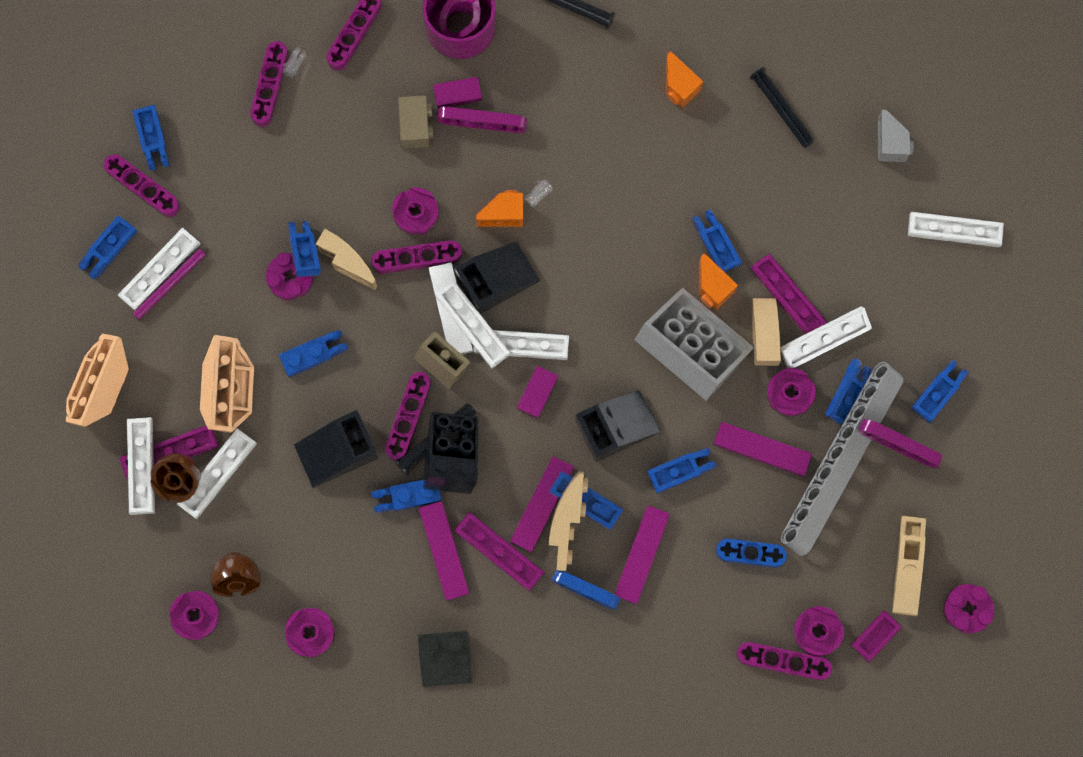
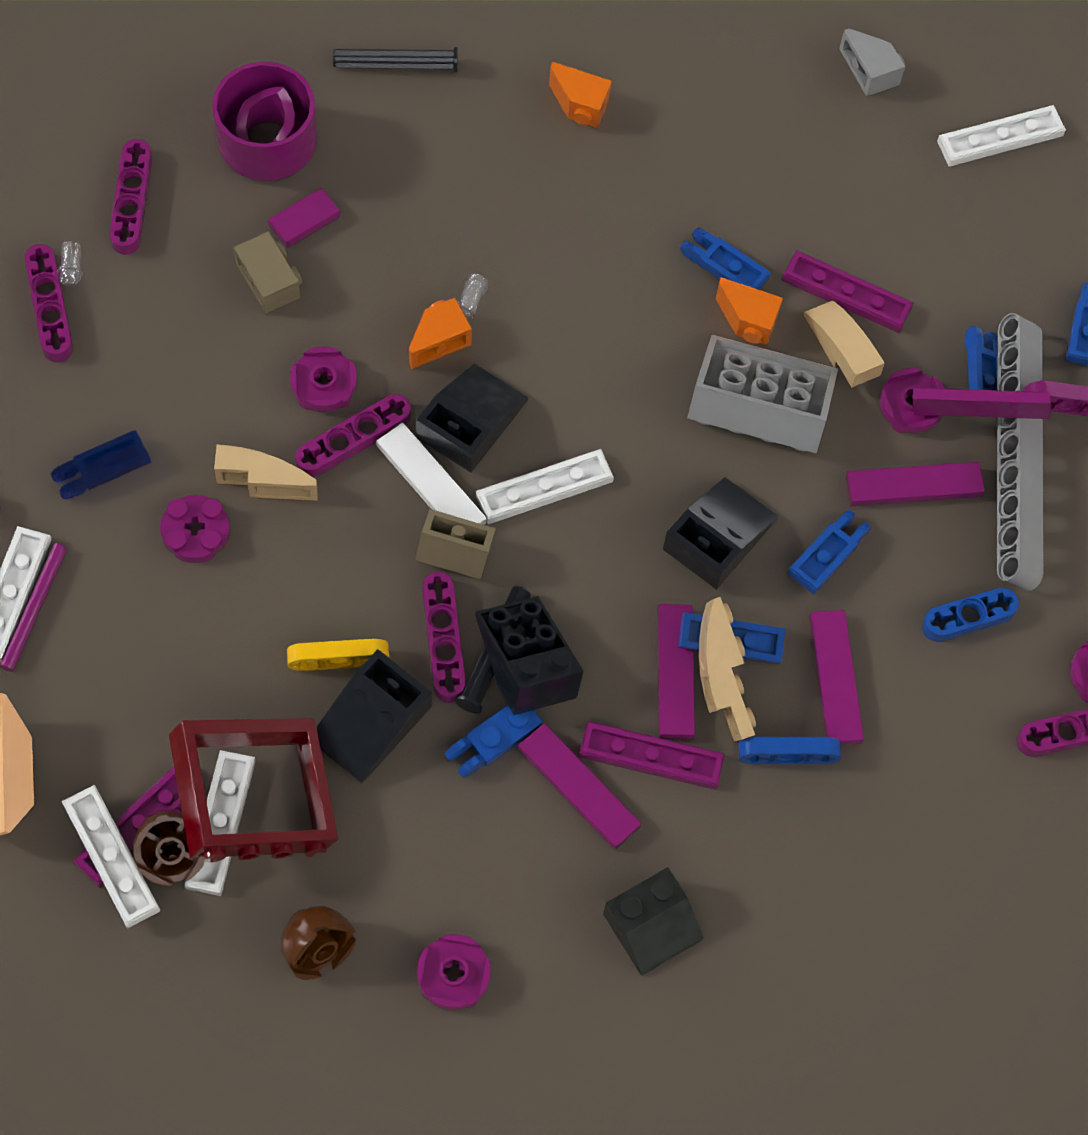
camera: 30 degrees left, 10 degrees down
(180, 615) = (294, 1040): magenta plate -> none
(226, 385) = (172, 687): light nougat wedge -> none
(252, 208) = (101, 464): none -> clear blue hinge
(252, 427) = (251, 732): none -> dark red window
(304, 250) = (201, 483): blue hinge -> none
(311, 353) = (273, 613): blue hinge -> none
(336, 399) = (333, 654): none -> yellow beam
(472, 324) = (471, 485): white tile -> none
(482, 120) = (353, 236): magenta beam -> none
(537, 392) = (596, 535): magenta tile -> none
(782, 107) = (720, 78): black axle -> none
(825, 338) = (920, 318): white tile -> none
(828, 418) = (981, 403): none -> magenta tile

